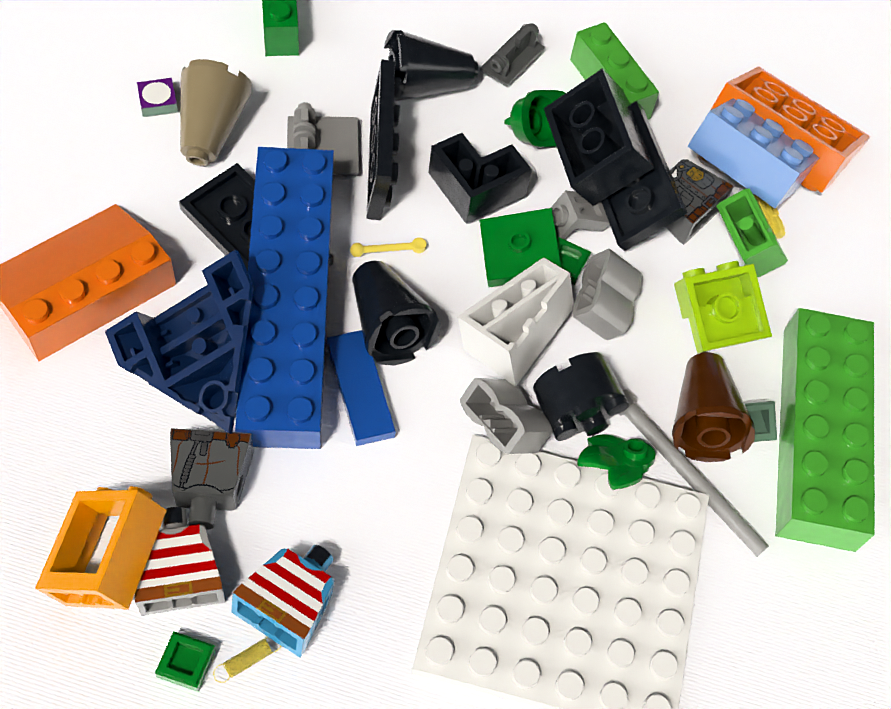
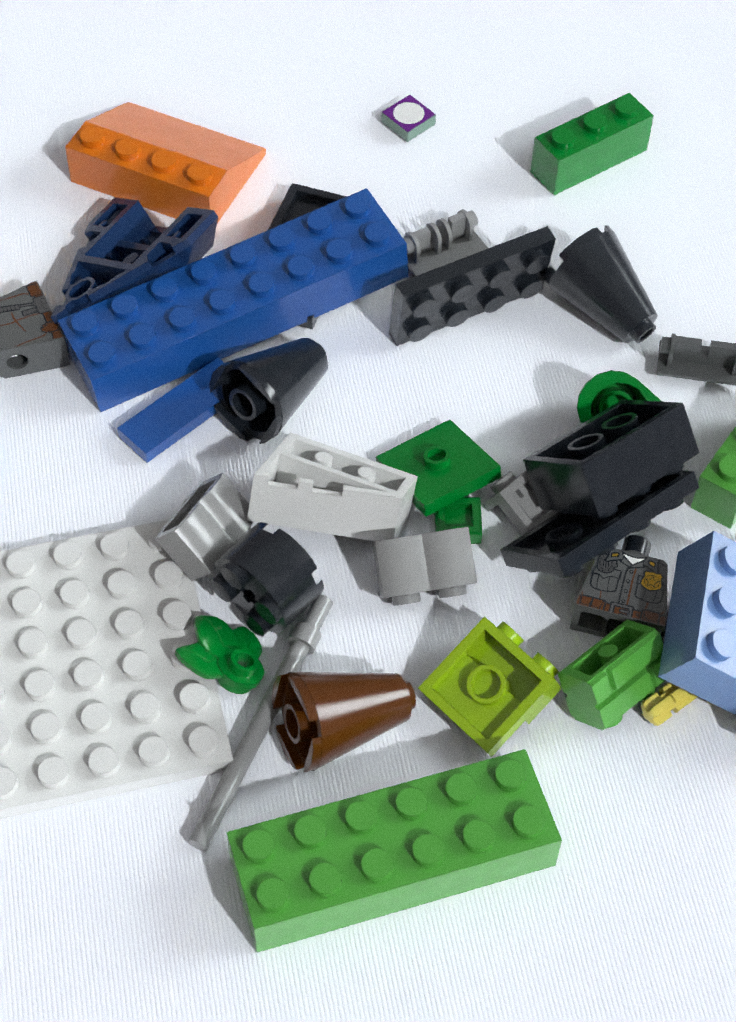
camera: 70 degrees right, 5 degrees down
(209, 108) = (407, 152): dark tan cone -> none
(418, 245) = (385, 386): light yellow hinge -> none
(475, 182) = (487, 389): black brick -> none
(764, 418) = (364, 772): sand green slope -> none

